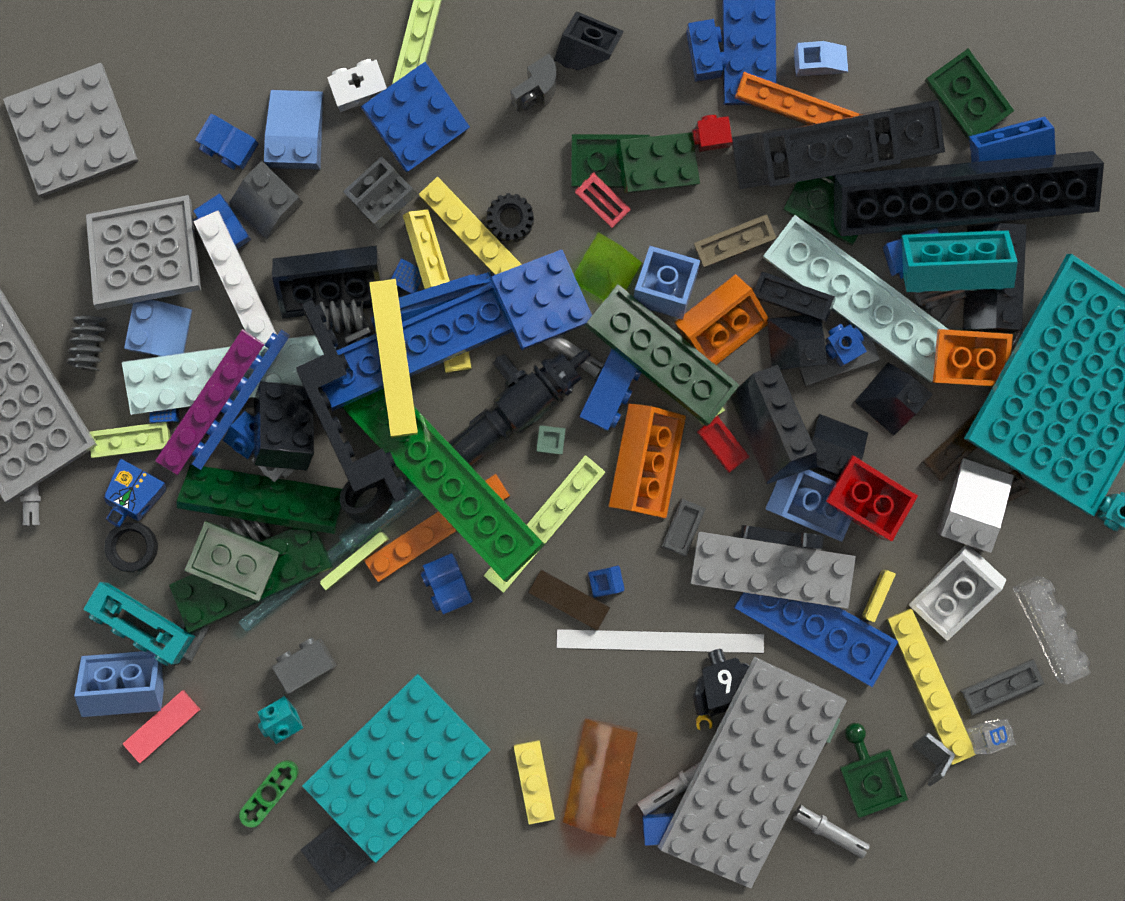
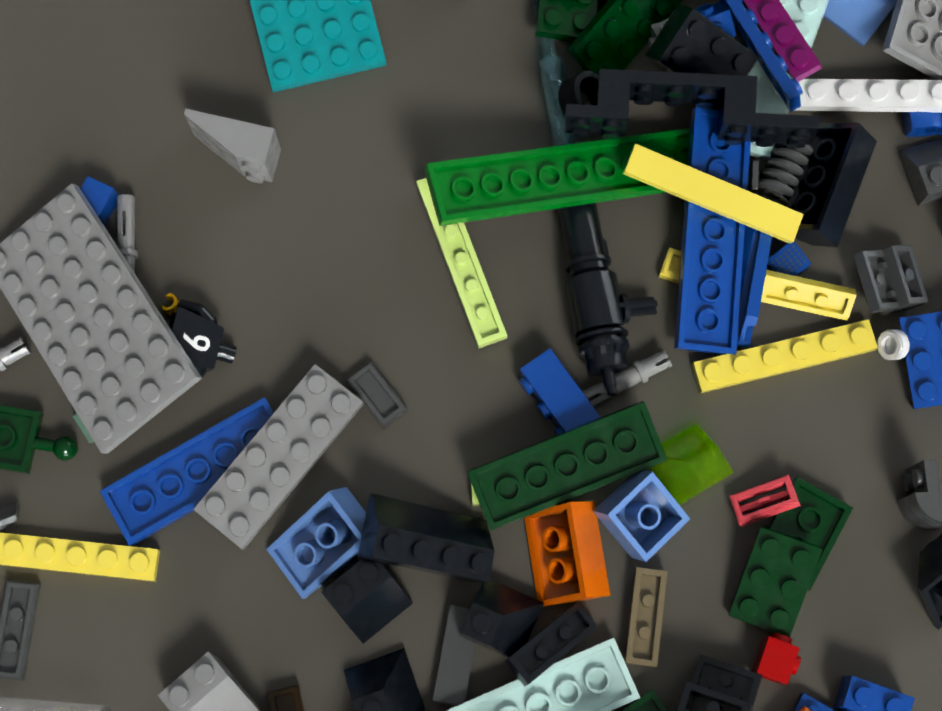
camera: 120 degrees right, 10 degrees down
(354, 560) = (530, 61): yellowish green tile -> none
(418, 540) = (516, 137): orange plate -> none
(430, 166) = (893, 344): none -> white tile
(447, 584) = (456, 134): blue brick -> none
(506, 202) = (803, 380): black tyre -> none
(534, 782) = (209, 104): light yellow plate -> none
(541, 299) = (693, 378): plate -> none
(551, 440) = (542, 311): sand green plate -> none
(554, 736) = (243, 145): none -> light grey slope
(569, 600) = (371, 242): dark brown tile -> none
(600, 777) = (179, 176): clear orange slope -> none
(606, 581) = (367, 289): blue slope -> none
(647, 460) = (465, 394): orange slope -> none
(660, 641) = (276, 311): white sticker -> none
(723, 444) = (438, 483): red tile -> none
(800, 539) = (288, 501): black beam -> none
(853, 341) = (458, 672): blue brick -> none
(871, 499) = (290, 598): red slope -> none
(878, 595) = (187, 552): light yellow tile -> none
(958, 592) = (139, 640): white slope -> none

